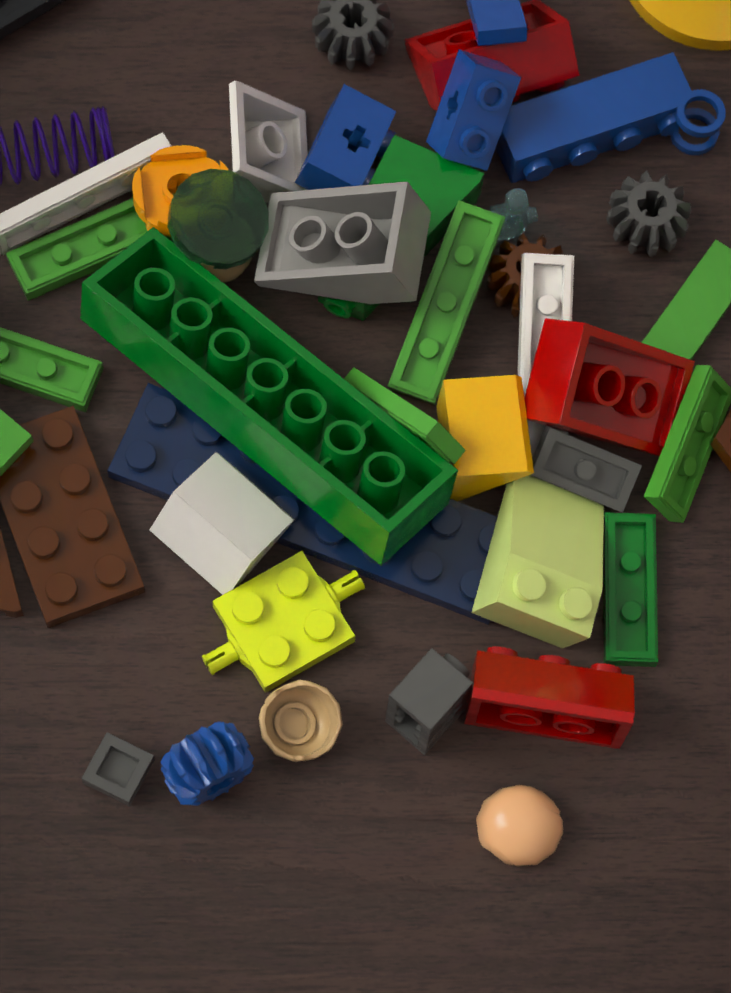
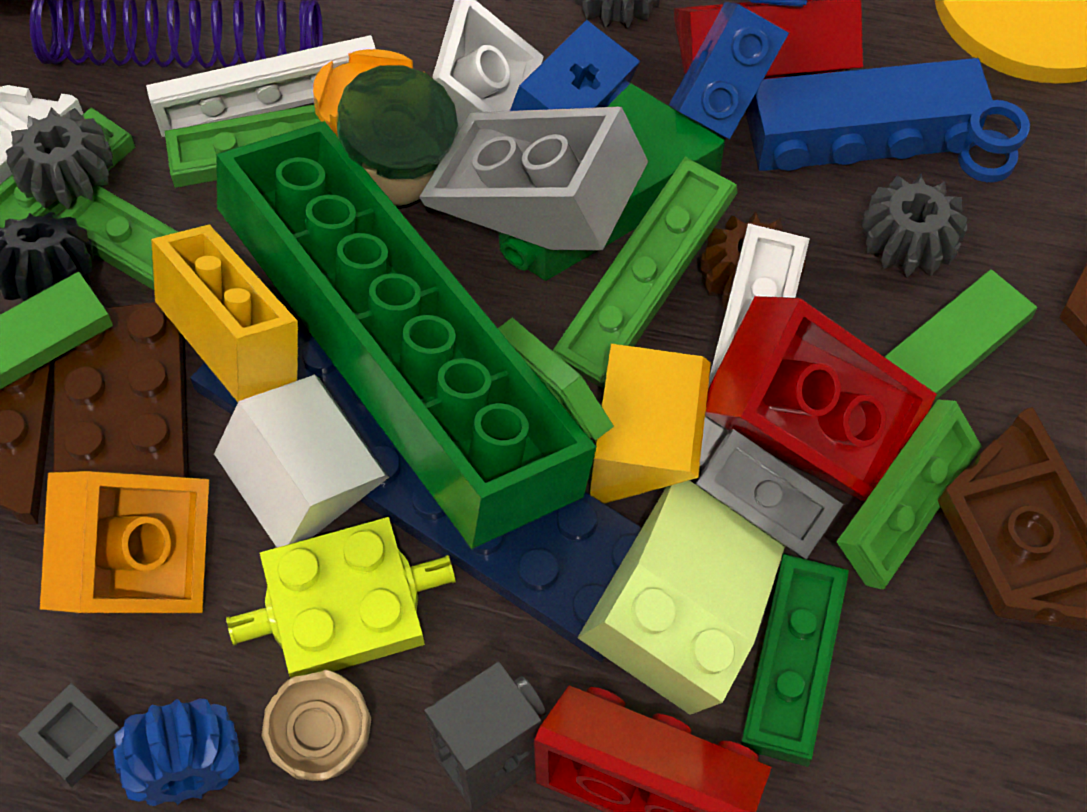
camera: 20 degrees right, 10 degrees down
(111, 619) = (124, 543): none -> light orange slope
(131, 416) = (225, 312): none -> yellow brick
(516, 212) = (750, 194): clear light blue piece -> none

